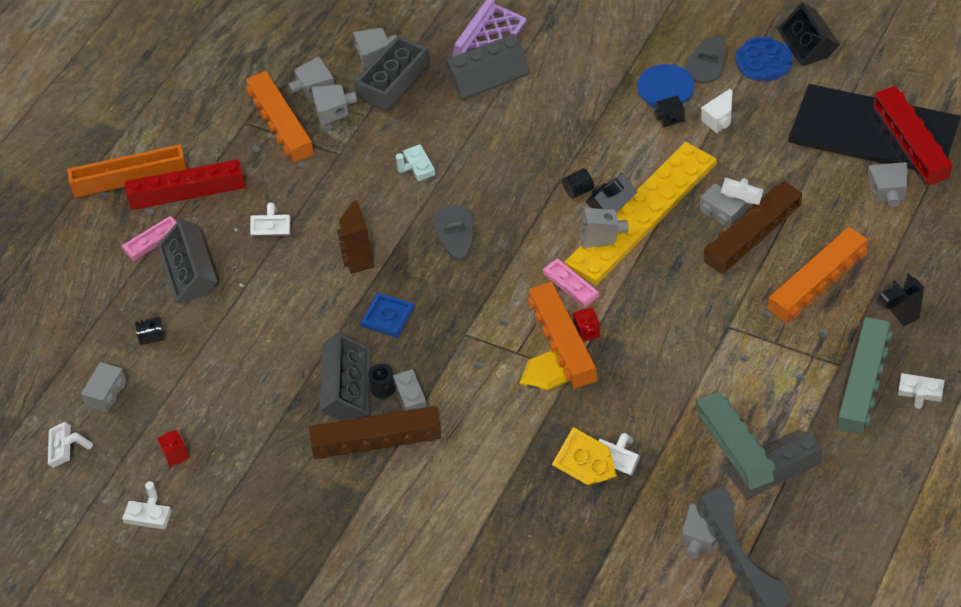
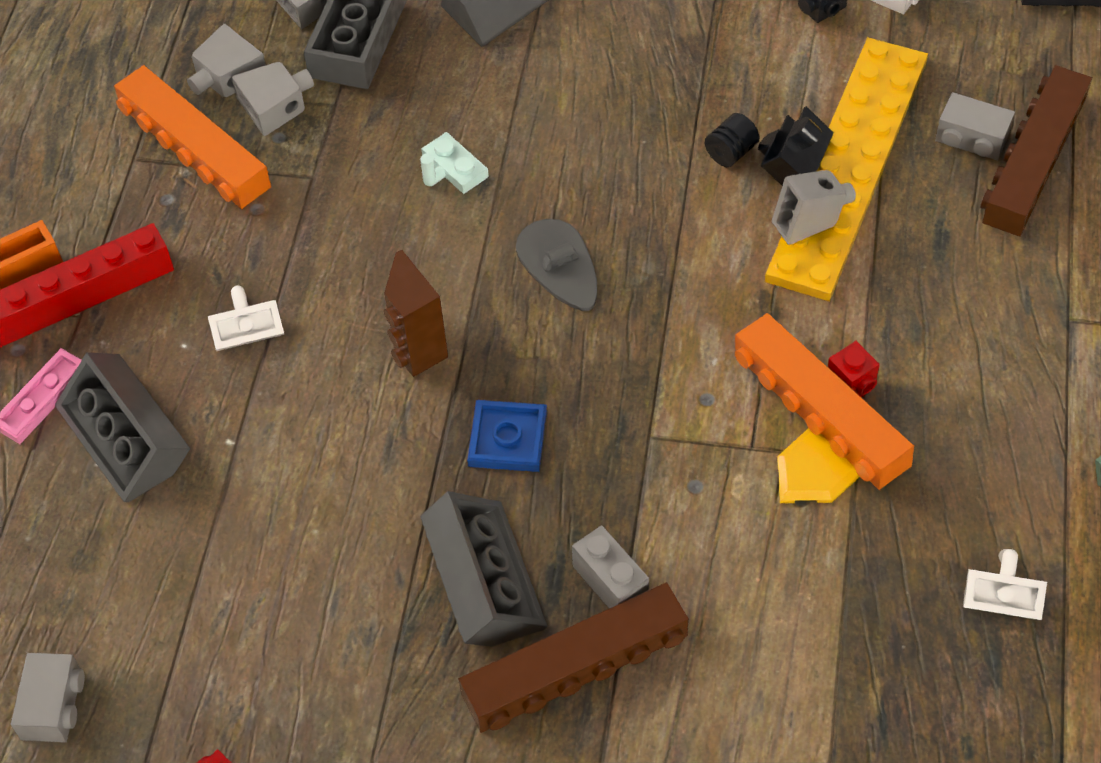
camera: 20 degrees left, 5 degrees up
(150, 330) = (98, 567): black piece -> none
(381, 381) = (549, 558): black piece -> none
(571, 283) = (789, 307): bright pink tile -> none
(585, 458) = (958, 611): yellow tile -> none
(742, 191) = (998, 93): white plate -> none

